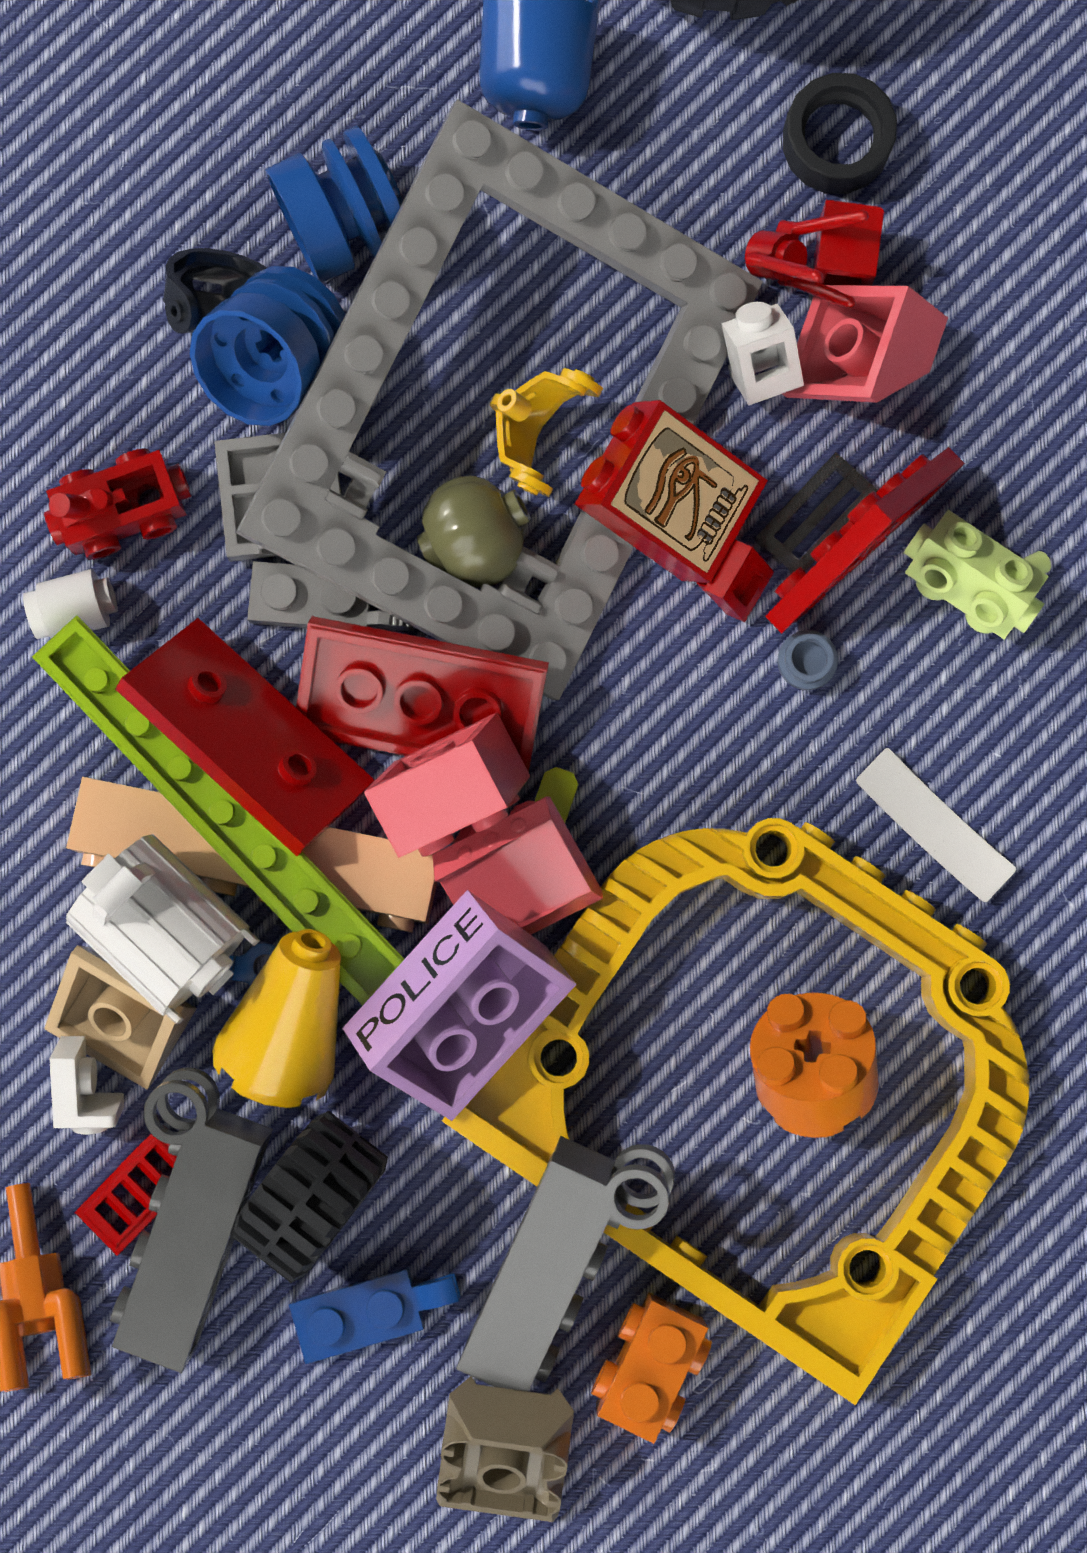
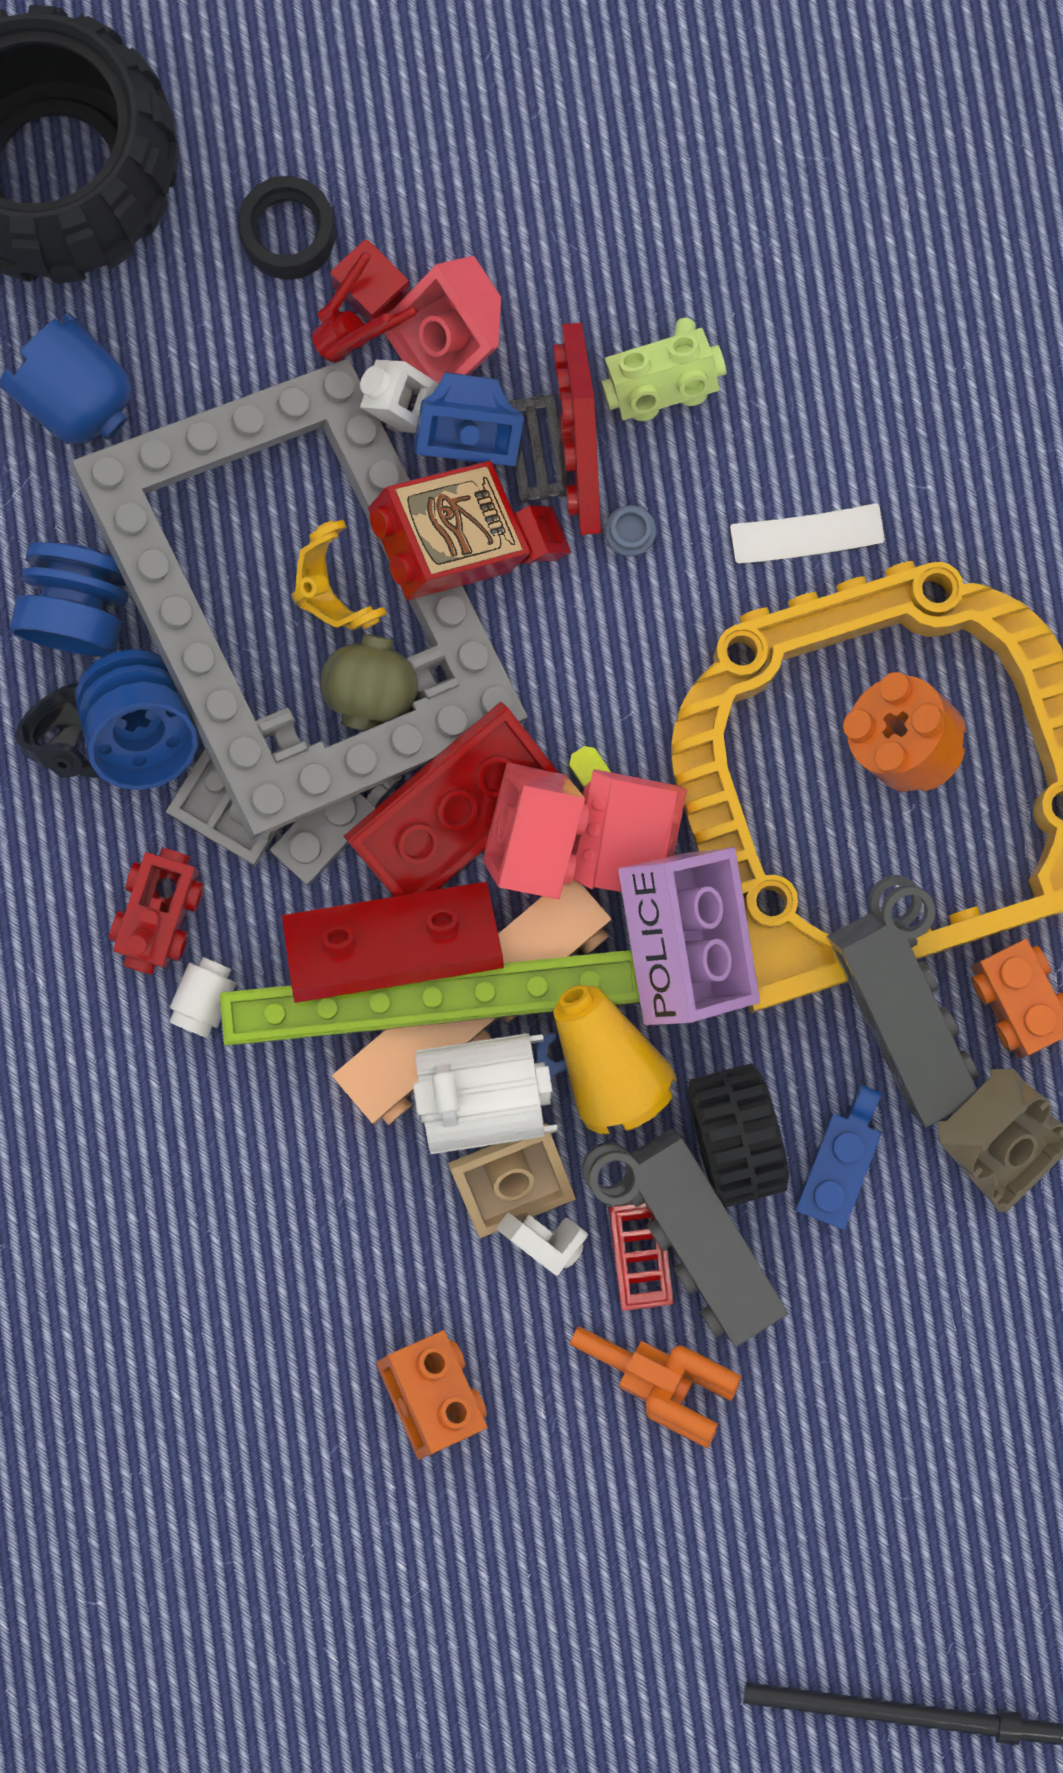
camera: 55 degrees left, 0 degrees up
(788, 432) = (469, 422): none -> blue slope

